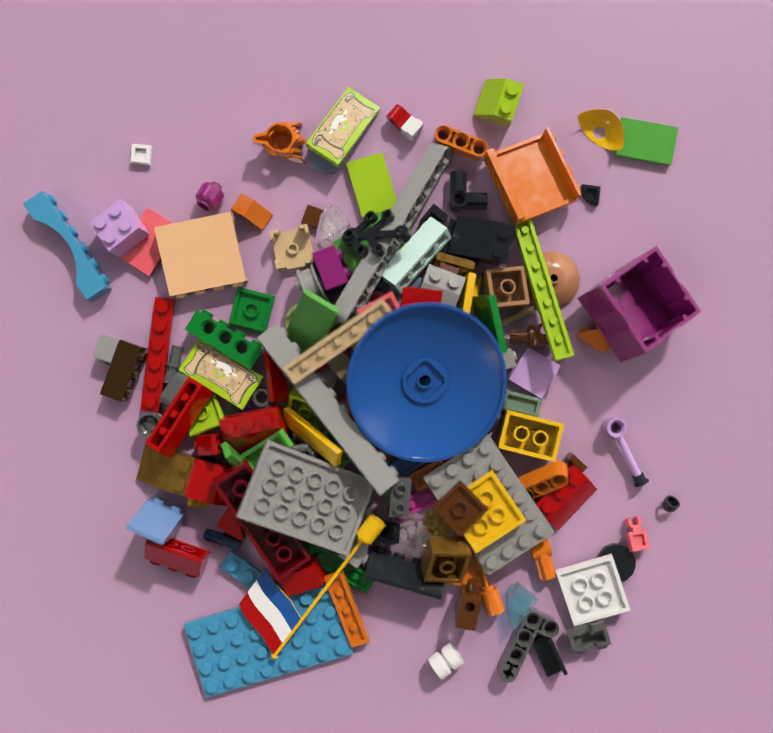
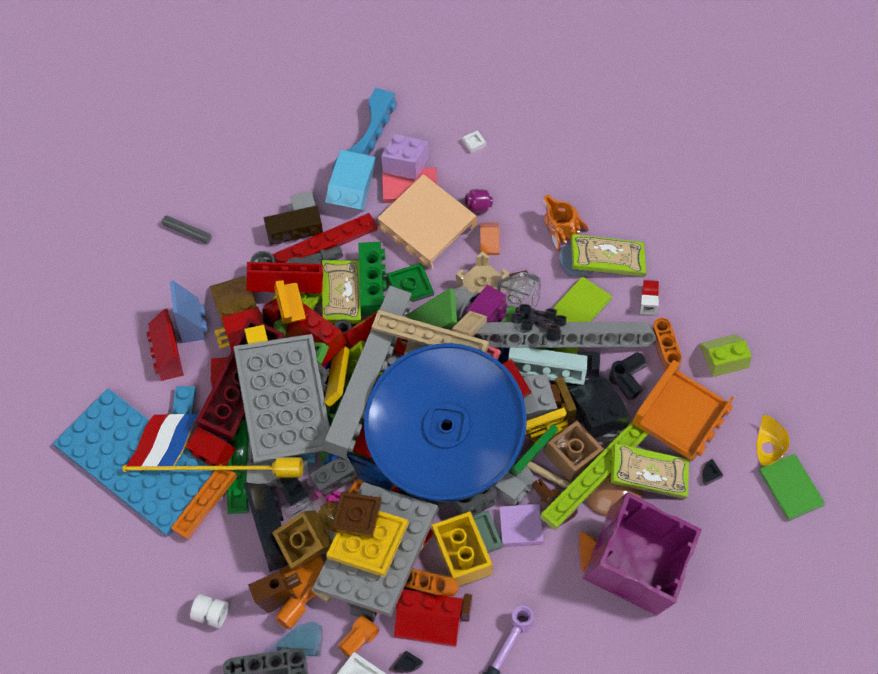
camera: 60 degrees right, 30 degrees down
(62, 463) = (186, 229): none -> dark grey axle
(114, 293) = (351, 180): none -> medium azure slope
(218, 435) = (289, 302): none -> light orange panel
(222, 539) = (201, 375): dark blue axle -> none
(236, 488) = (256, 334): none -> yellow tile
(347, 299) = (470, 323): none -> tan tile
(565, 243) = (650, 471): none -> tile
(586, 533) = (408, 663): none -> black tile

